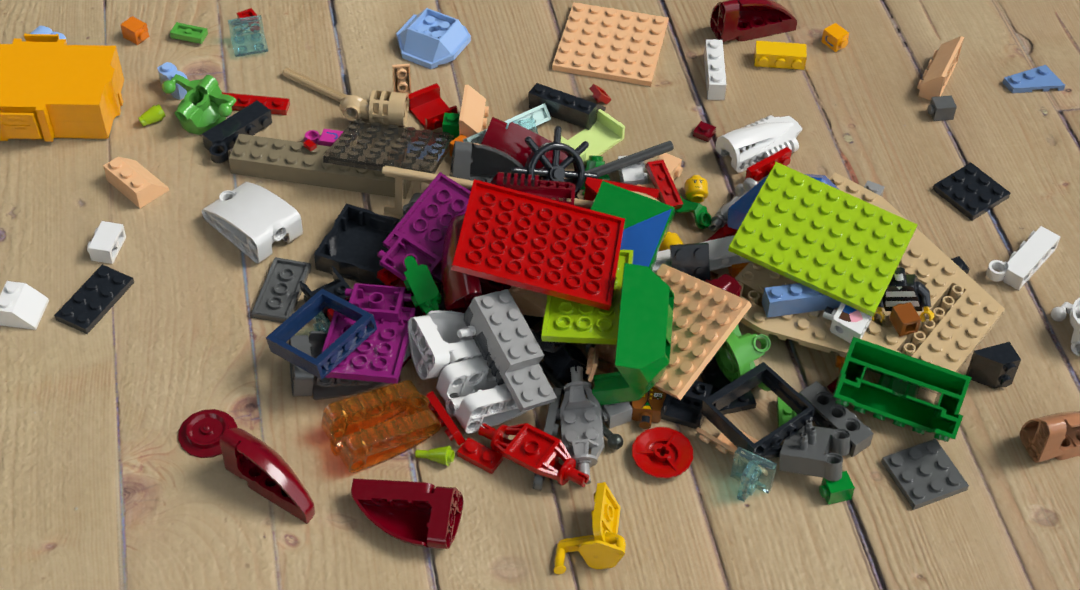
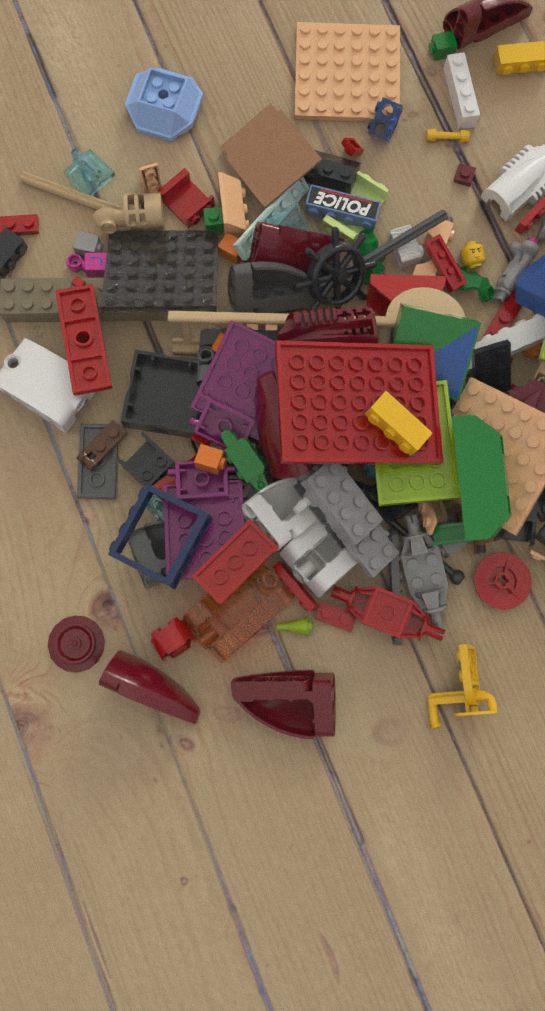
camera: 15 degrees left, 30 degrees up
(290, 274) = (102, 445): none -> reddish brown plate
(299, 182) = (83, 340): none -> red plate
(306, 437) = (172, 639): none -> red brick
(327, 121) = (87, 243): none -> light grey brick
(347, 76) = (88, 171): none -> clear light blue bracket
(386, 363) = (235, 562): none -> red plate
(388, 280) = (210, 459): none -> orange brick
(518, 83) = (270, 154): none -> medium nougat piece
(572, 260) = (398, 423): none -> yellow brick
(577, 131) = (342, 207): none -> brick
(639, 78) = (389, 121): none -> clear blue brick
(680, 97) = (463, 136): none -> yellow bar
(702, 33) = (442, 45): none -> green brick

